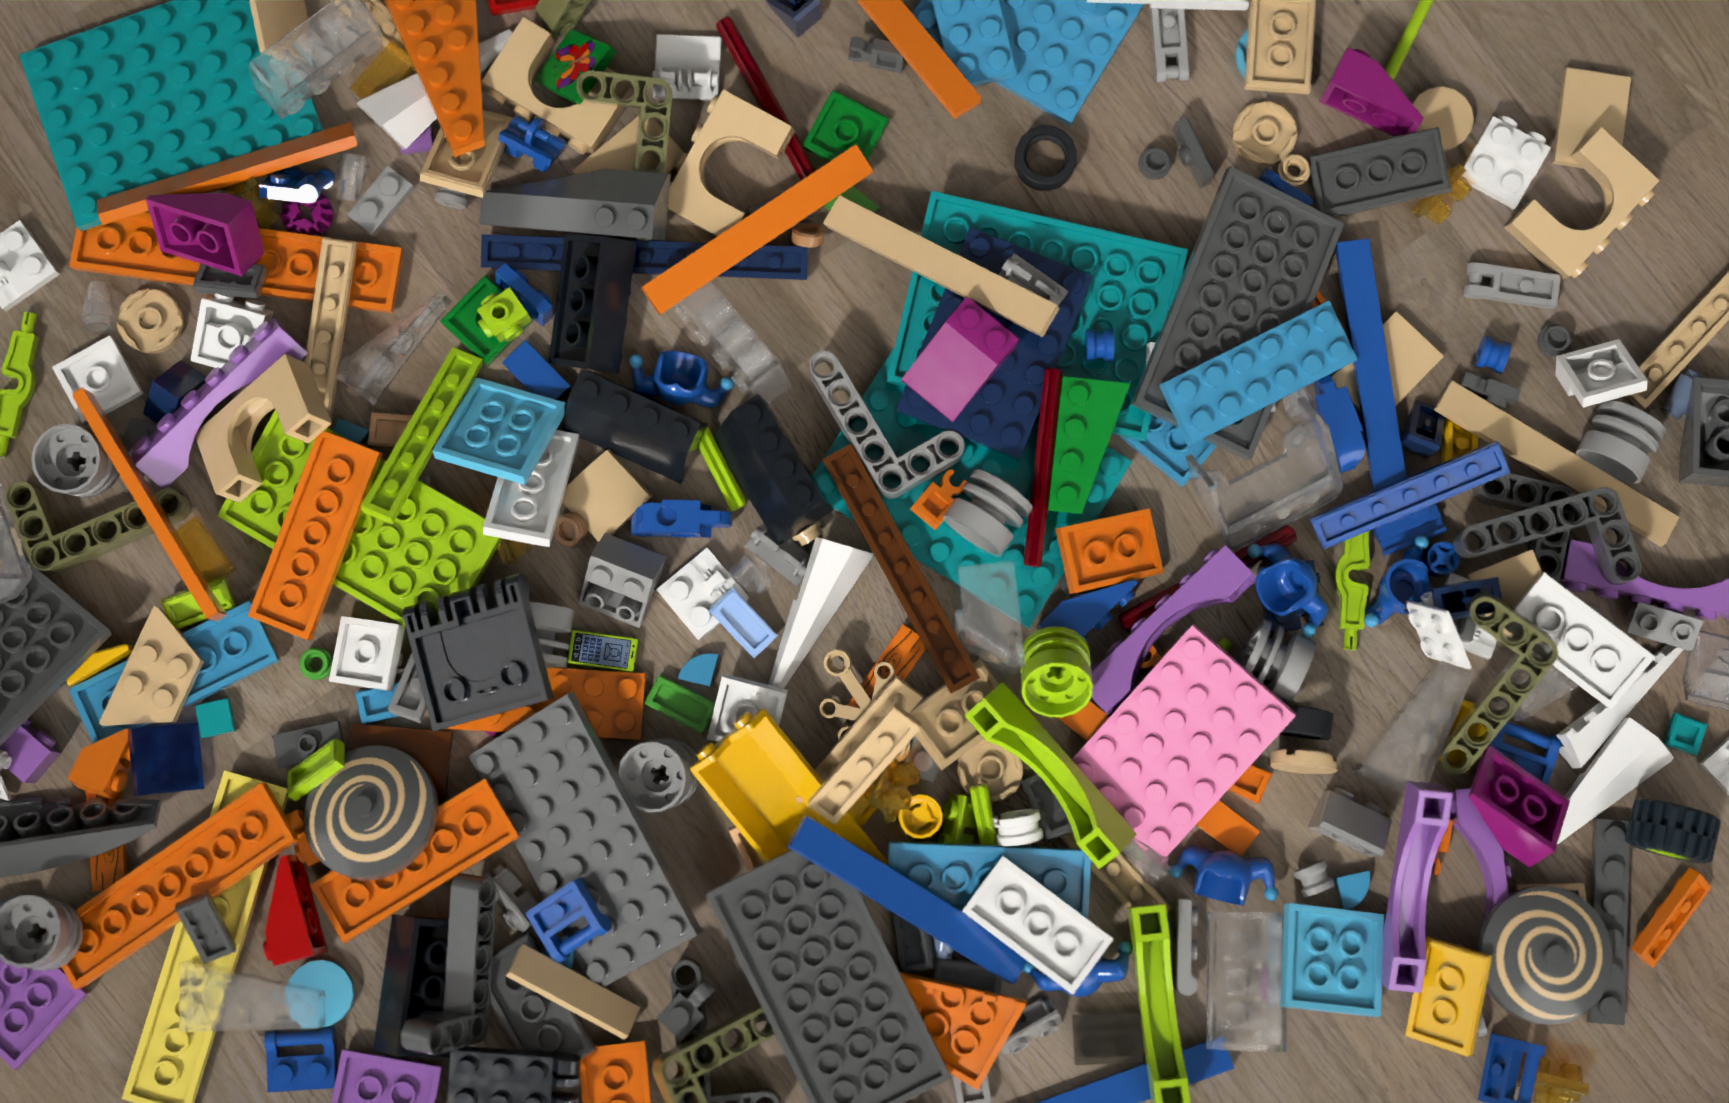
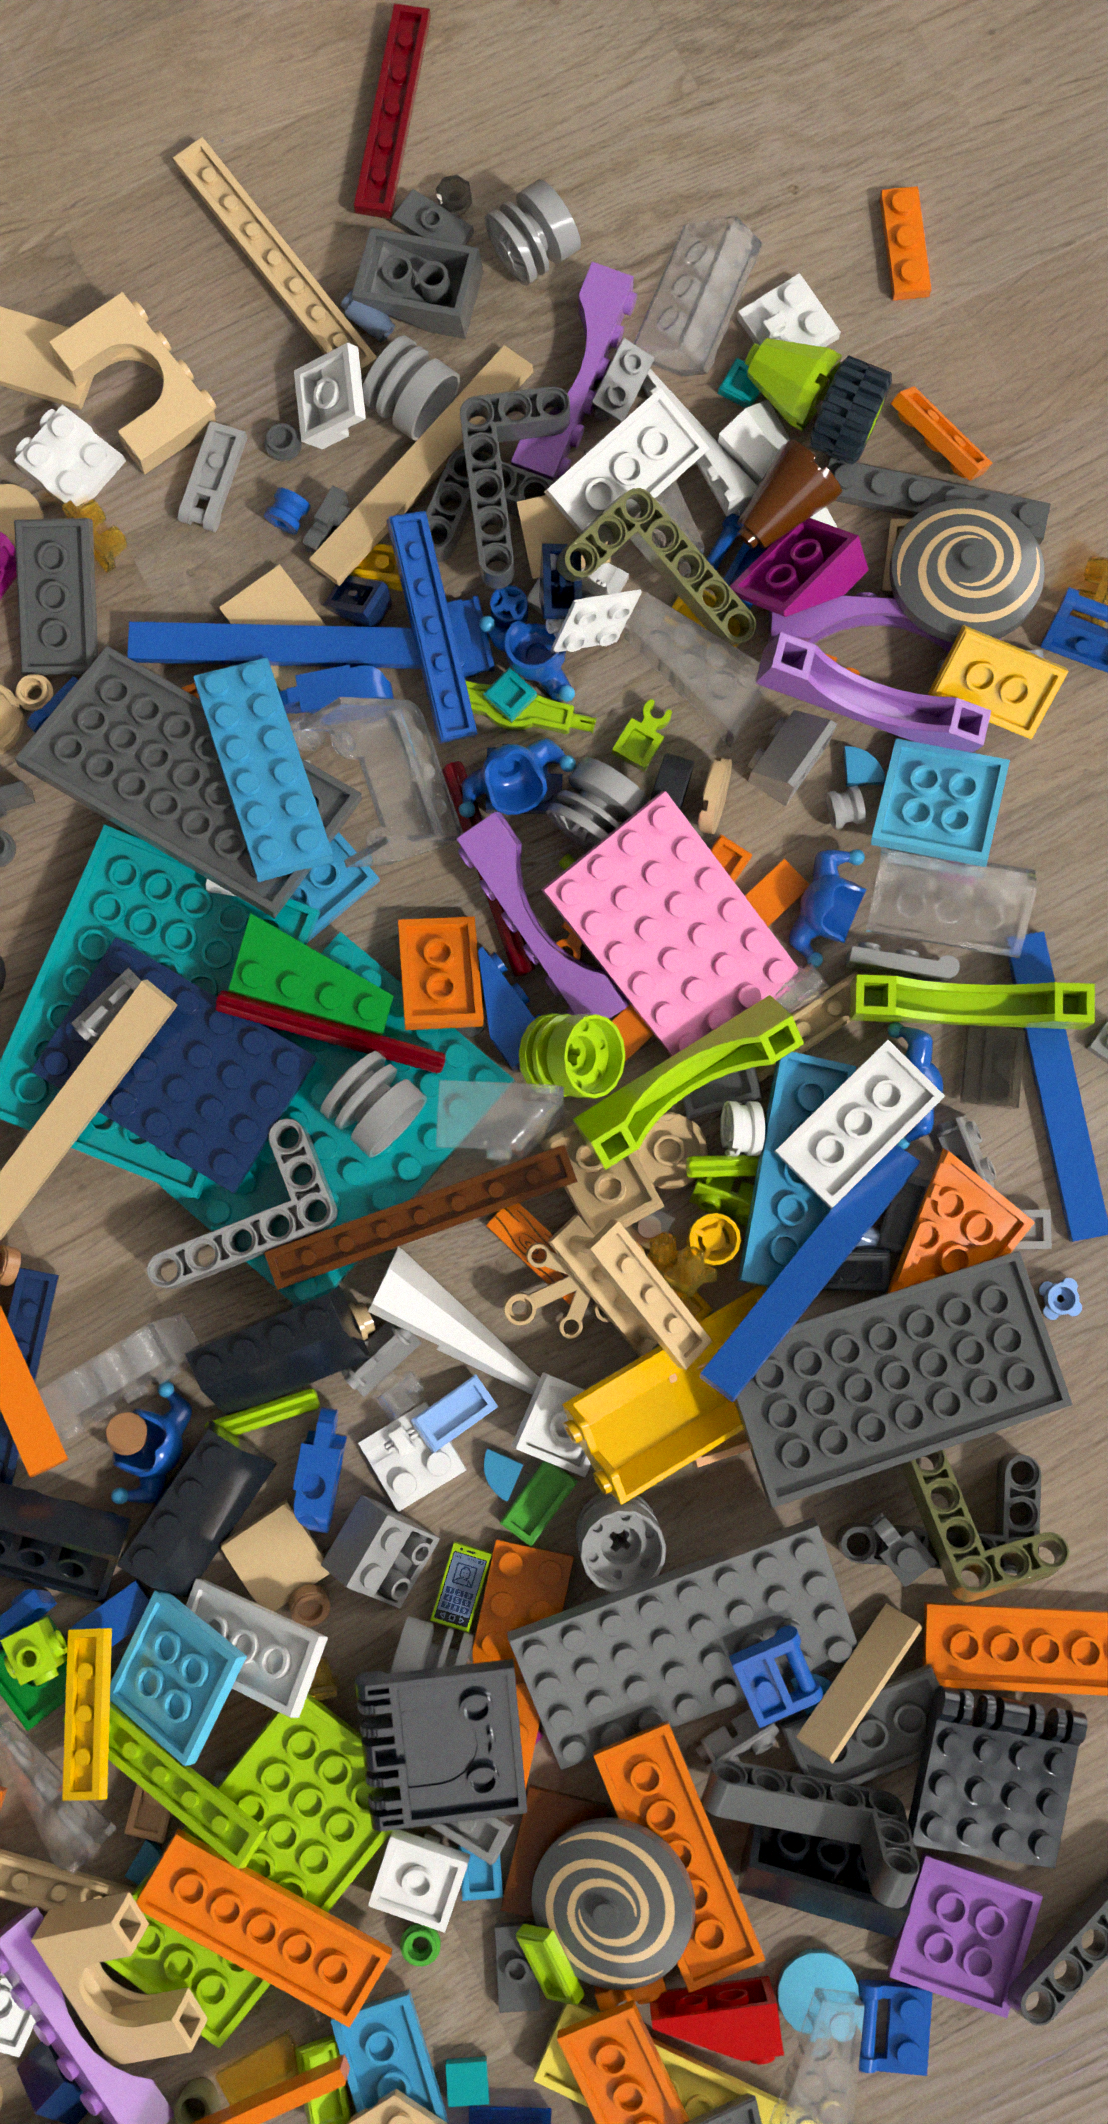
camera: 80 degrees left, 0 degrees up
(461, 366) = (87, 1714): none -> yellow plate
(686, 357) = (126, 1433): none -> medium nougat tile
(936, 500) = (349, 1161): orange plate -> none
(960, 359) = (186, 1106): magenta slope -> none
(1099, 345) = (198, 943): blue wheel -> none
(1342, 691) = (640, 740): none -> lime plate
(1362, 572) = (510, 695): none -> teal tile
(1580, 783) = (787, 496): none -> reddish brown cone
(1695, 775) = (792, 376): none -> lime cone

